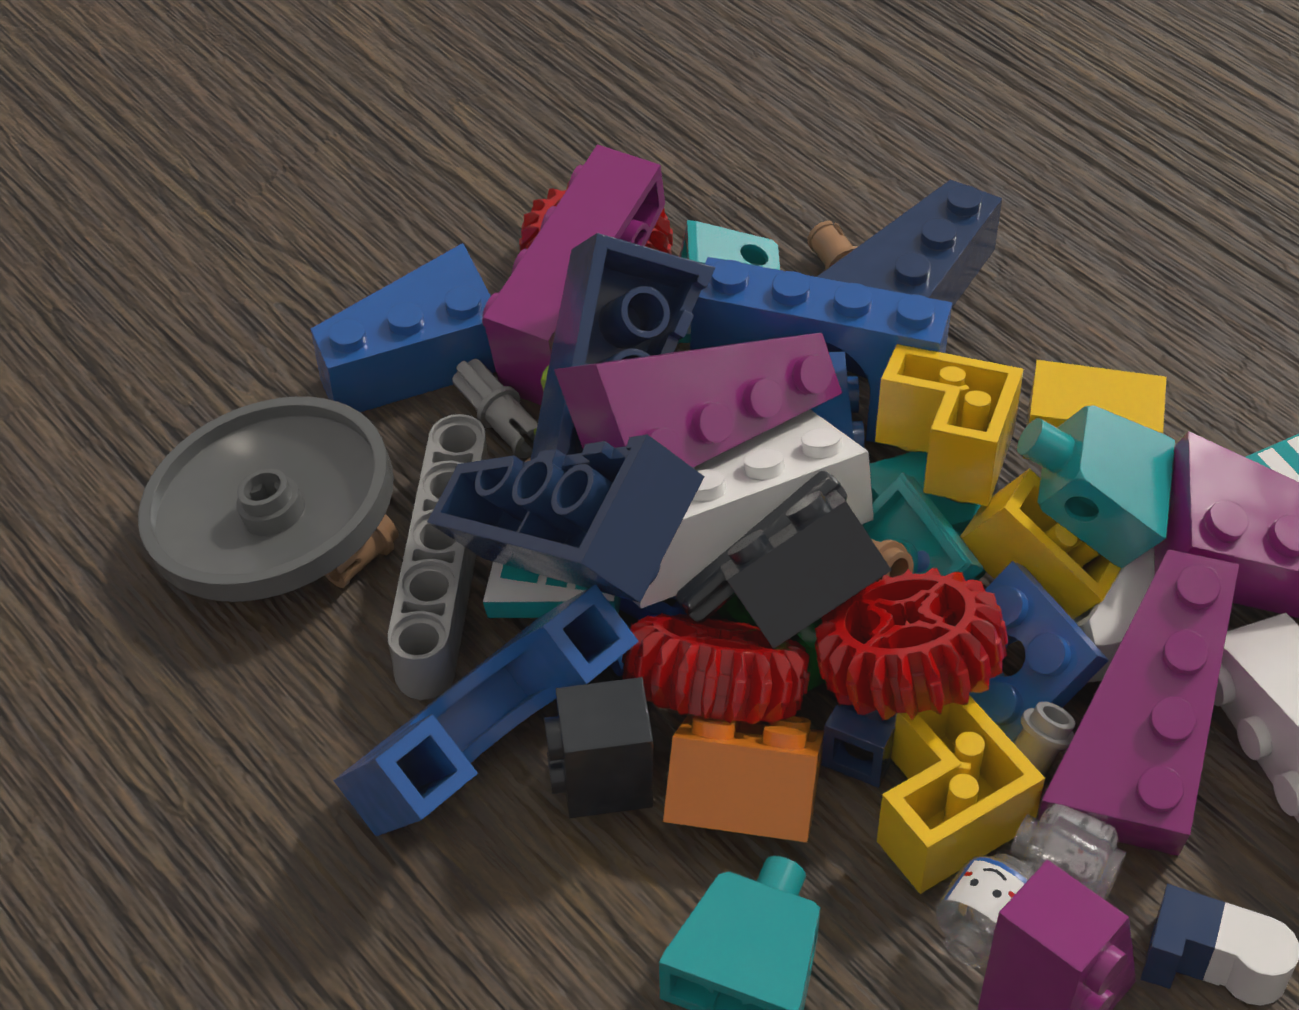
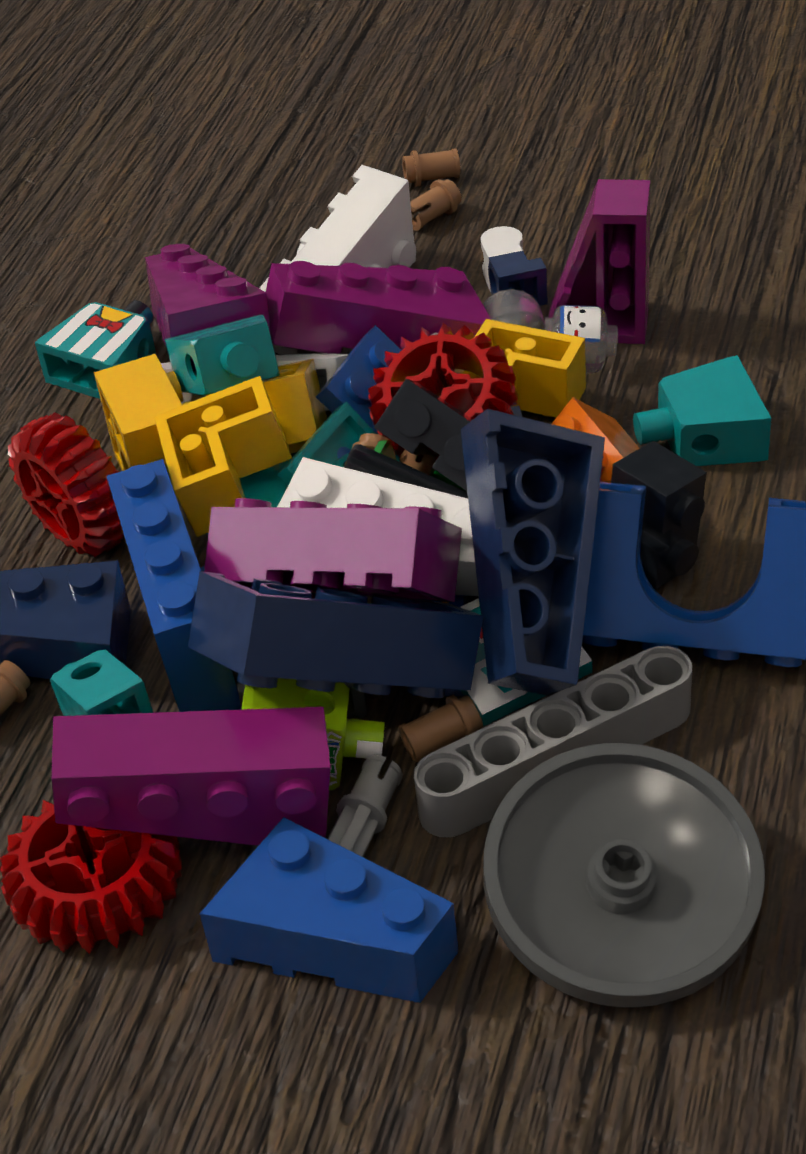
camera: 120 degrees left, 5 degrees down
(1056, 327) = (67, 482): none -> red gear

